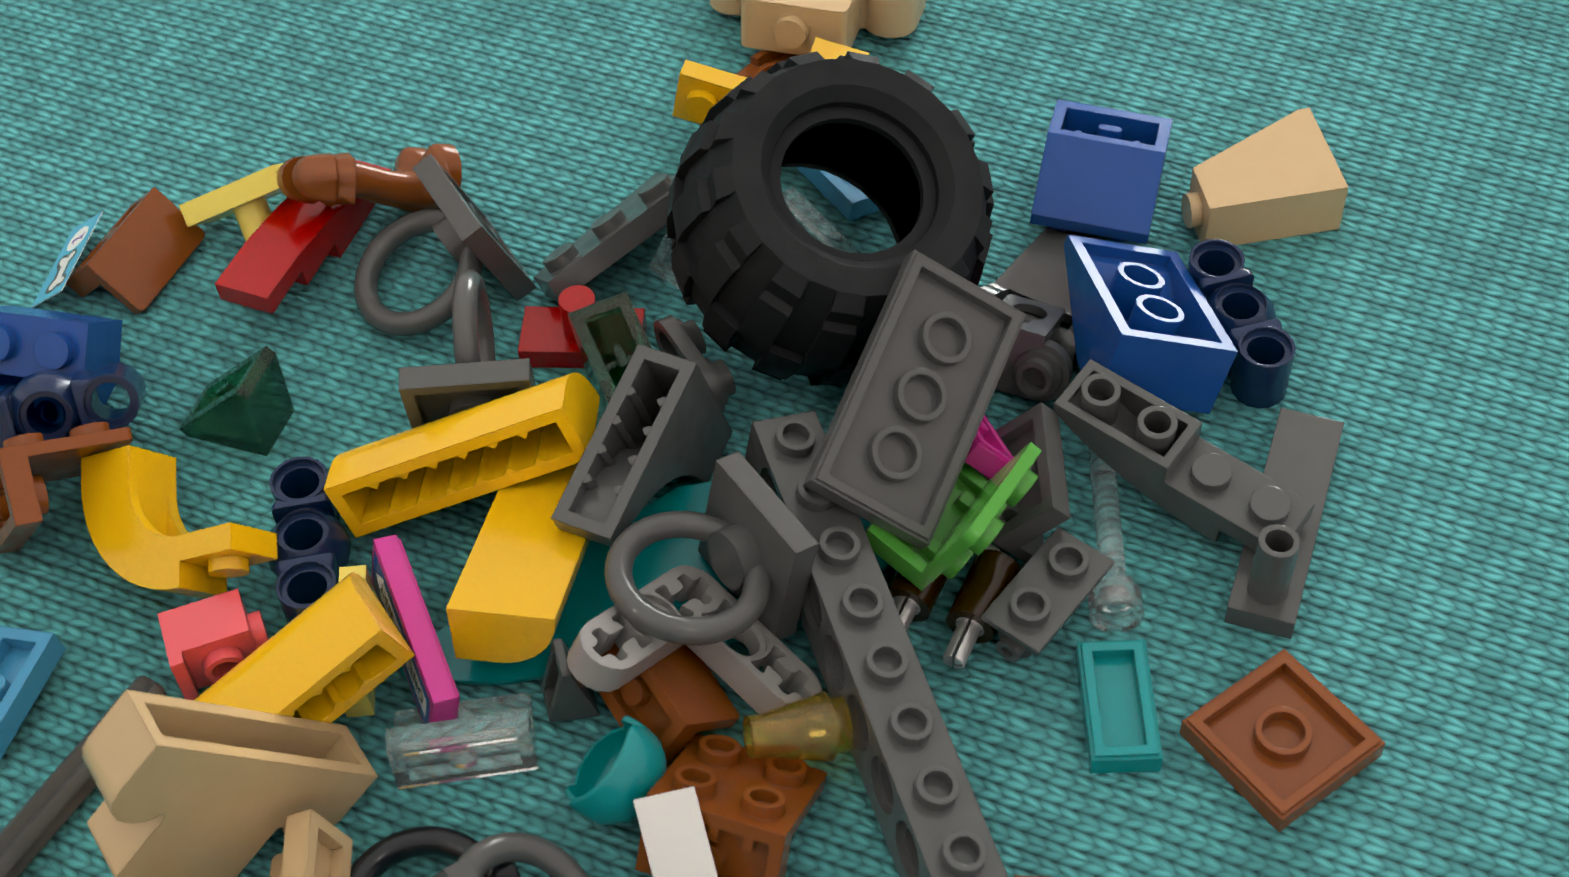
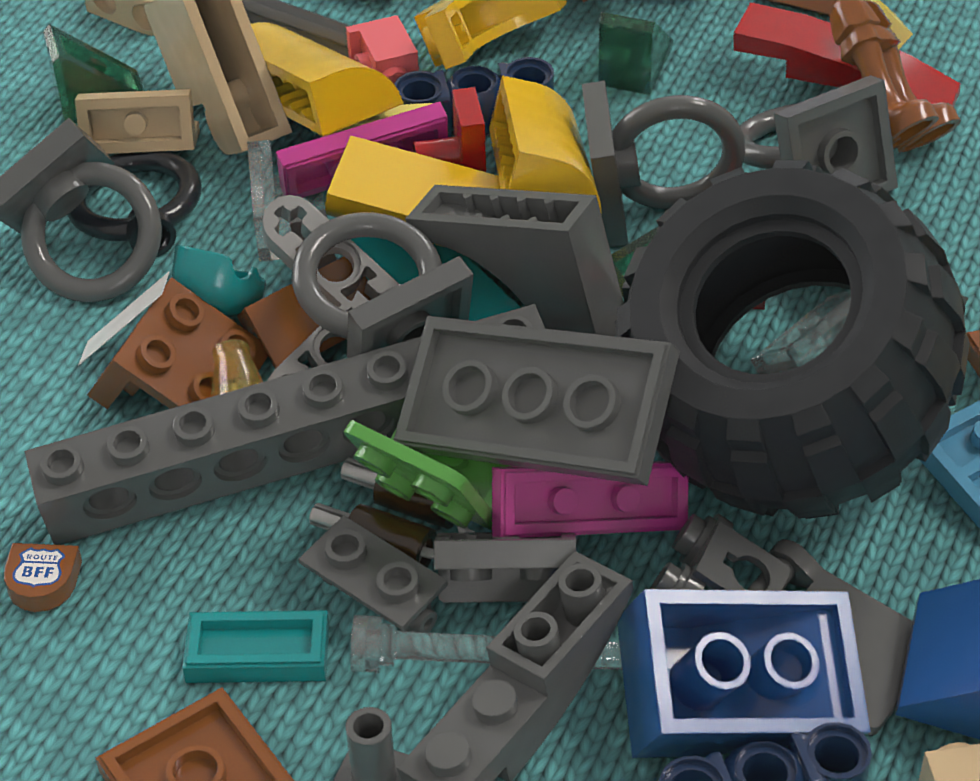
camera: 90 degrees right, 5 degrees down
(434, 528) = (468, 144): none -> red tile

